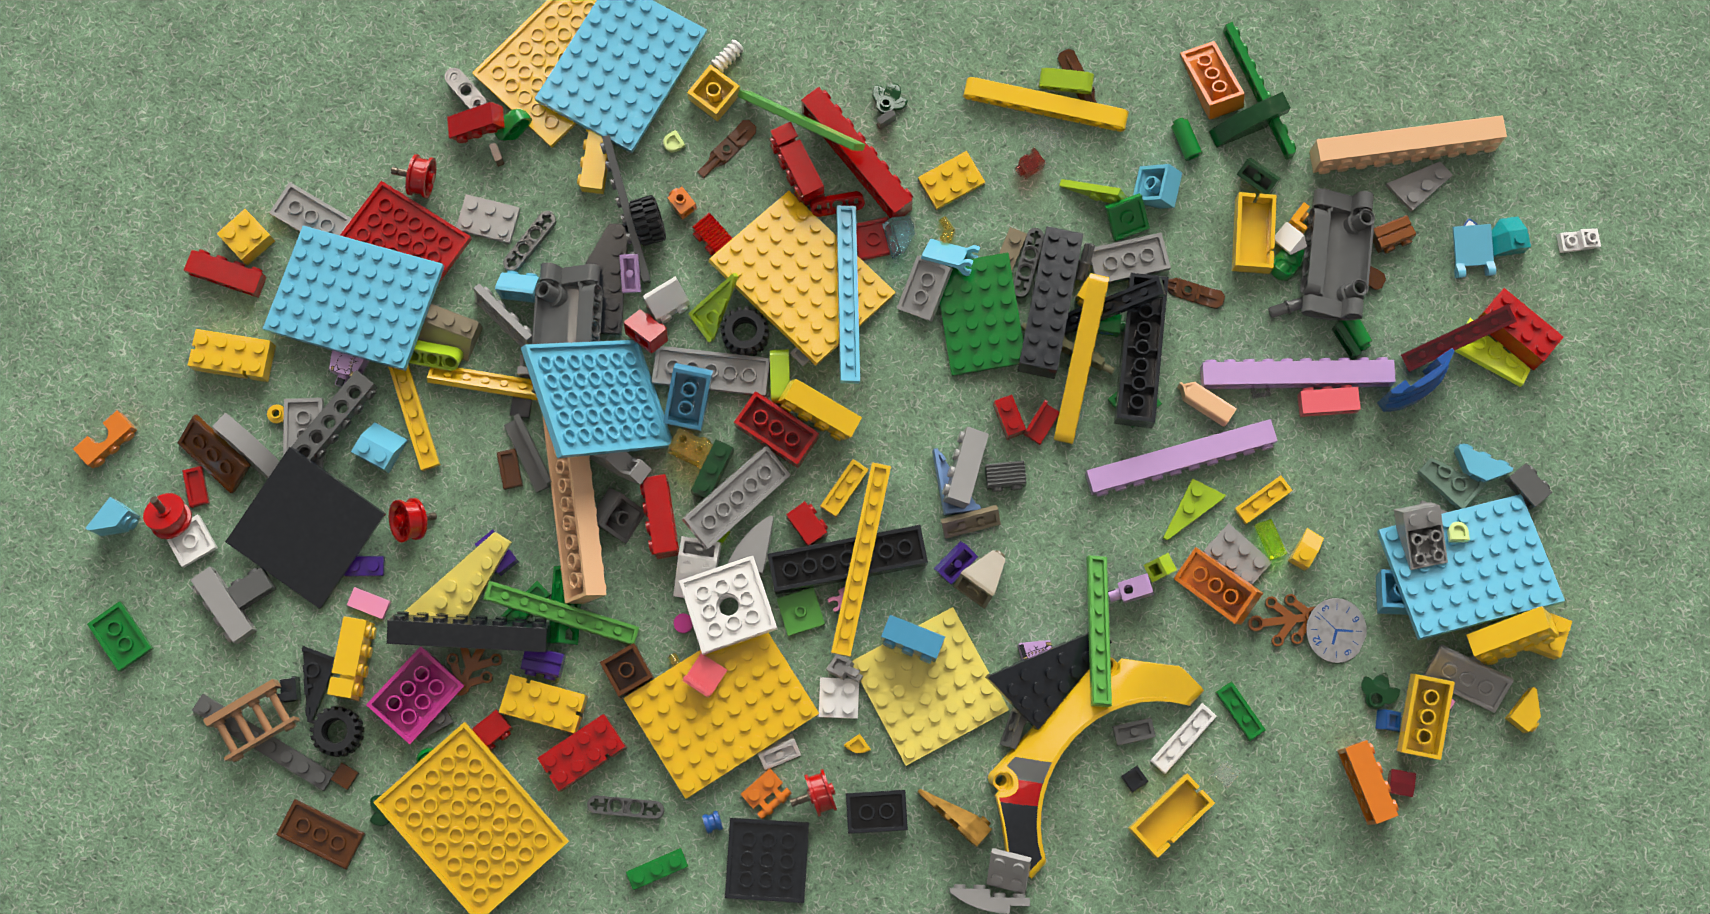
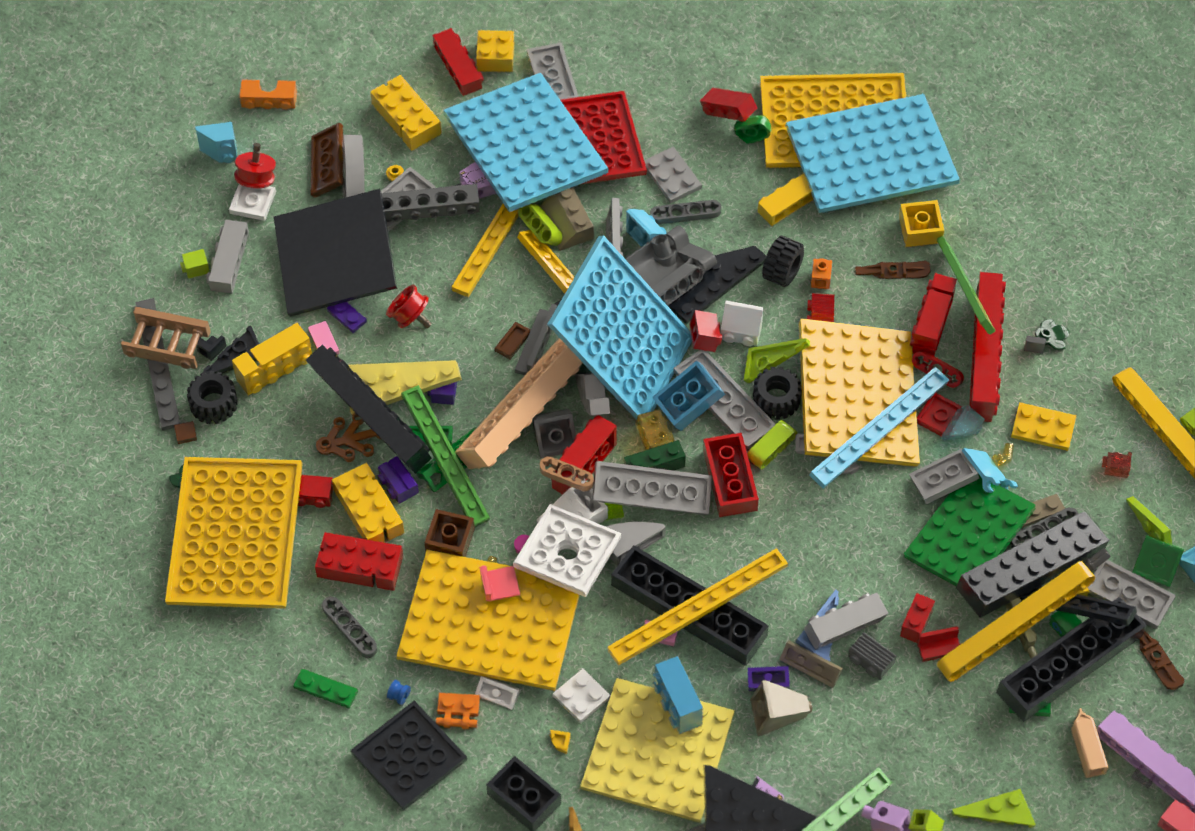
camera: 45 degrees right, 20 degrees down
(120, 636) = (142, 217): green plate -> none
(195, 486) = (293, 172): red tile -> none
(204, 636) = (194, 264): none -> lime brick
(251, 588) = (258, 262): dark grey brick -> none
(320, 834) = (128, 454): reddish brown tile -> none
(379, 447) = (439, 249): medium azure slope -> none
(415, 694) = (289, 418): dark pink slope -> none
(419, 175) = (653, 106): red wheel -> none
(441, 721) = (278, 450): dark grey plate -> none
(459, 84) = (743, 76): piece -> none
(496, 154) = (722, 139): tile -> none
(622, 201) = (786, 223): dark grey plate -> none
(630, 273) = (734, 285): lavender slope -> none
(673, 142) = (858, 234): yellowish green tile -> none
(682, 538) = (582, 474): none -> medium nougat beam
(727, 56) = (957, 210): white piece -> none
(800, 611) = (617, 613): bright green plate -> none
(807, 524) = (685, 555): red brick -> none
(819, 410) = (775, 484): yellow brick -> none
(819, 793) = (495, 740): red wheel -> none
(843, 667) = (606, 675): light grey plate -> none
(844, 488) = (735, 558): yellow plate -> none
(1181, 457) = (1027, 765): lavender brick -> none

